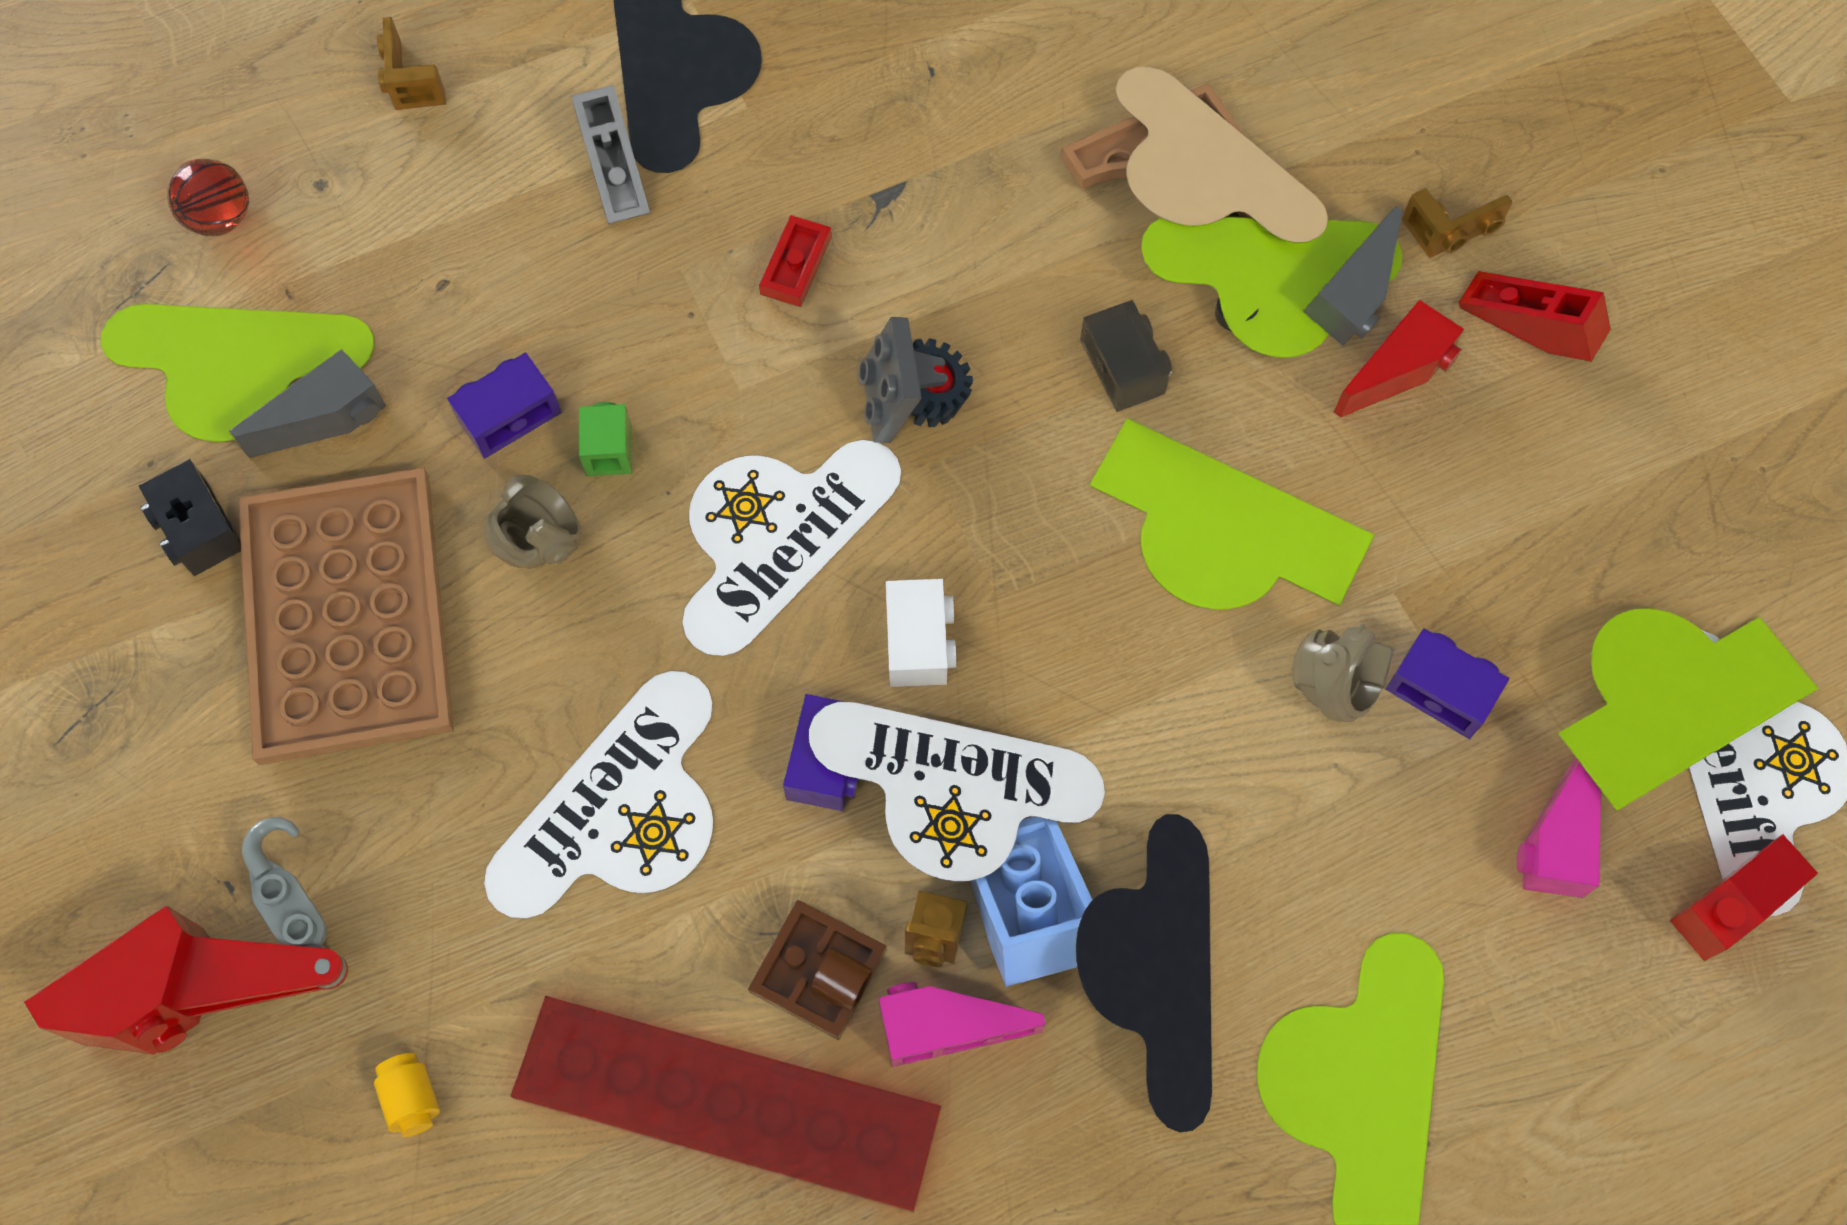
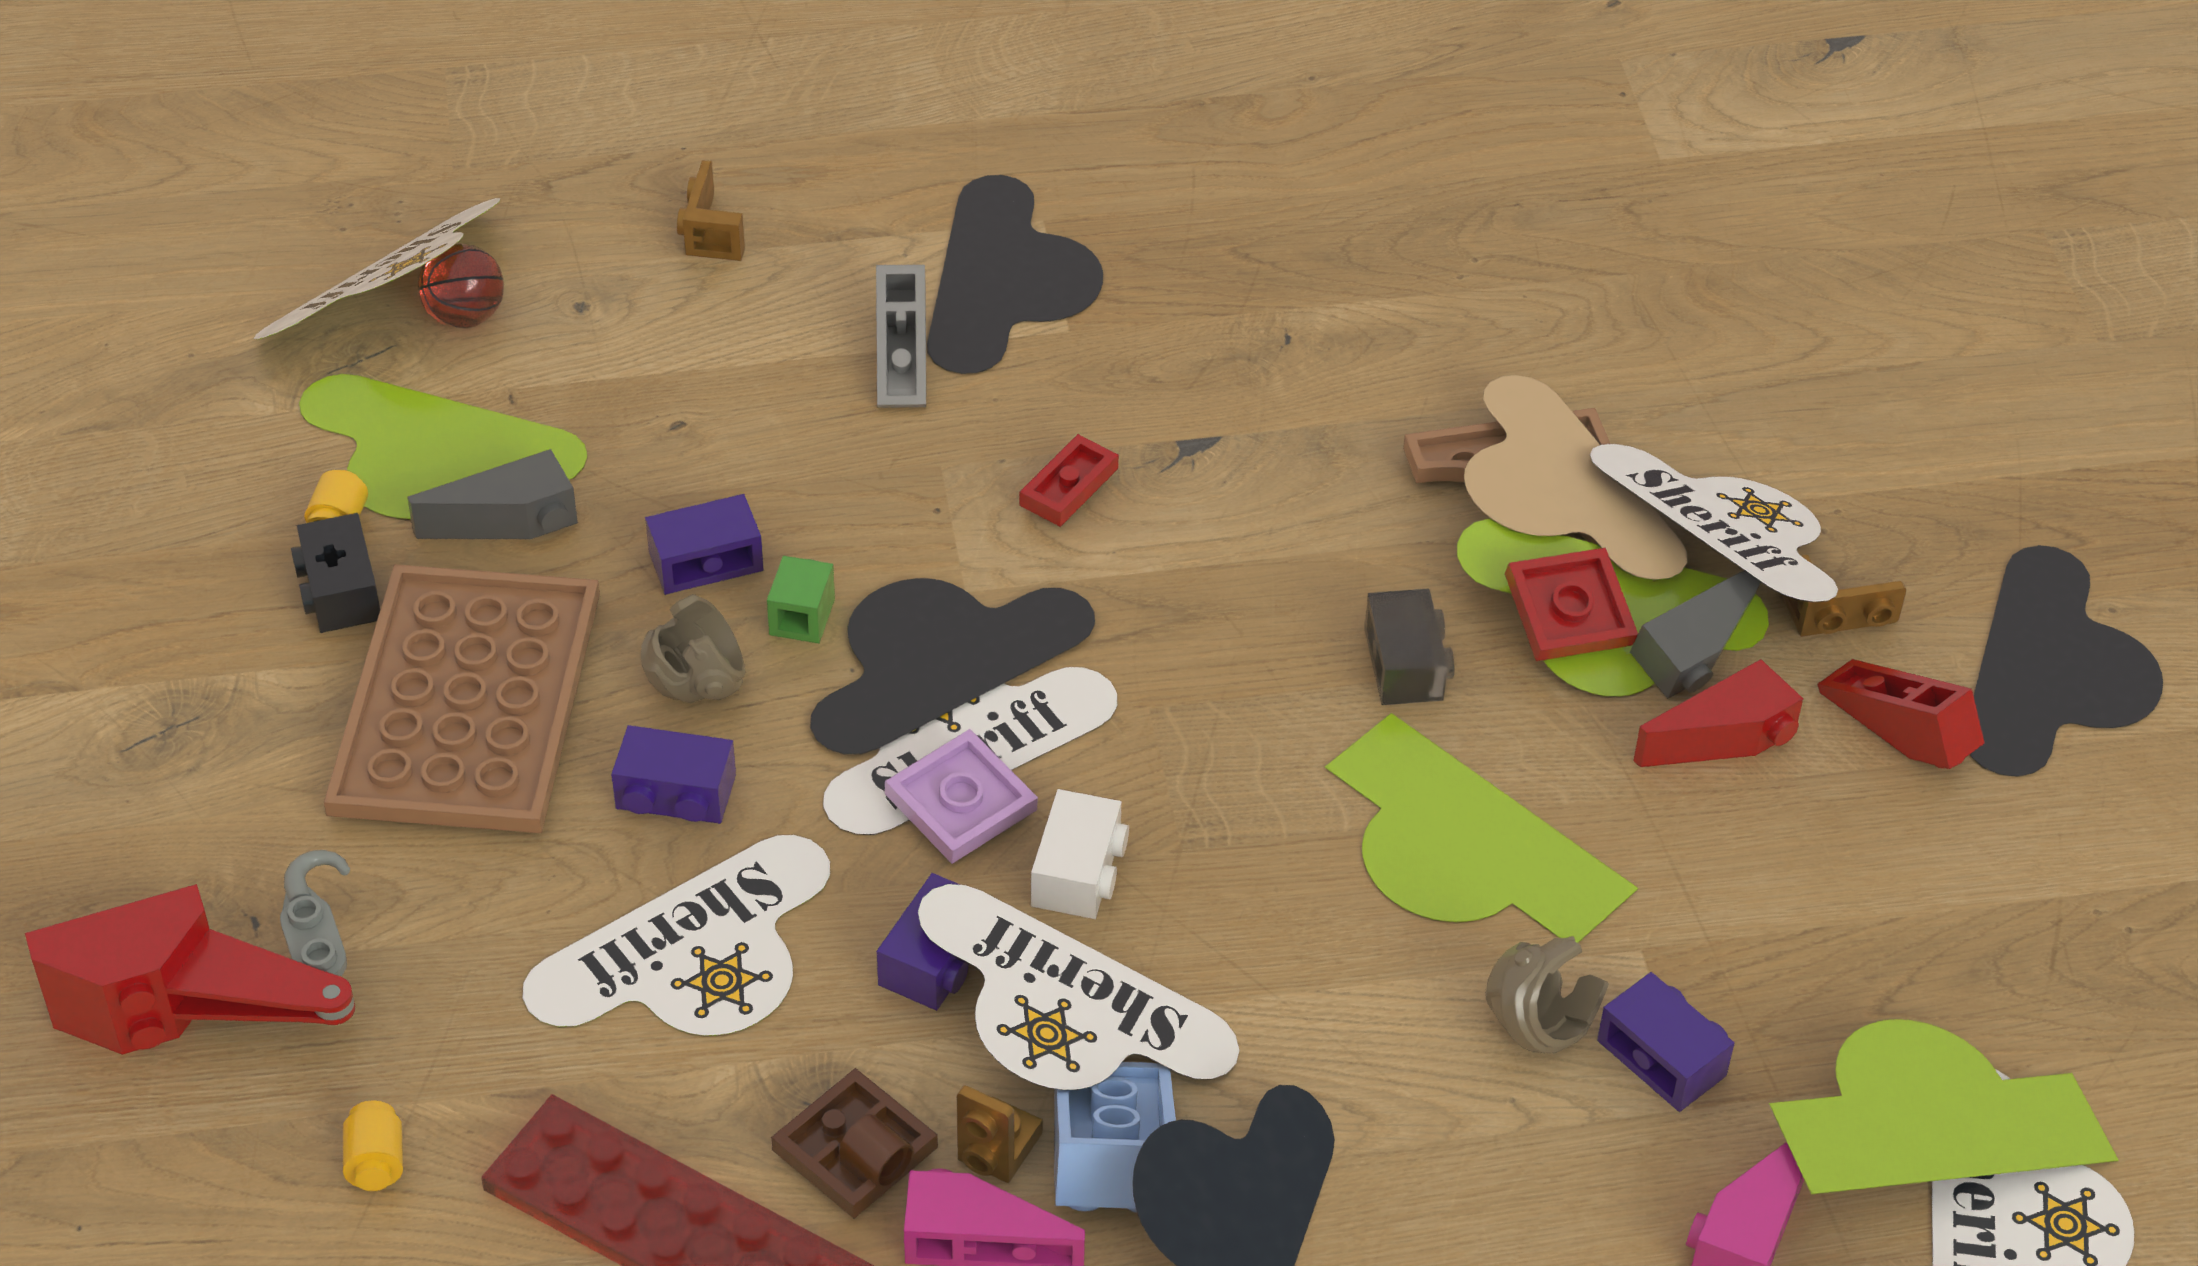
camera: 15 degrees right, 20 degrees down
(137, 197) = (388, 268): none -> white sticker
(165, 444) = (336, 495): none -> yellow brick
(550, 647) = (674, 774): none -> dark purple brick
(736, 460) = (936, 649): none -> black sticker
(801, 600) = (961, 796): none -> lavender plate
(910, 380) = (1155, 614): dark grey plate -> none
(1250, 284) = (1571, 604): none -> red plate
(1355, 163) = (1733, 515): none -> white sticker
(1634, 232) = (2054, 665): none -> black sticker

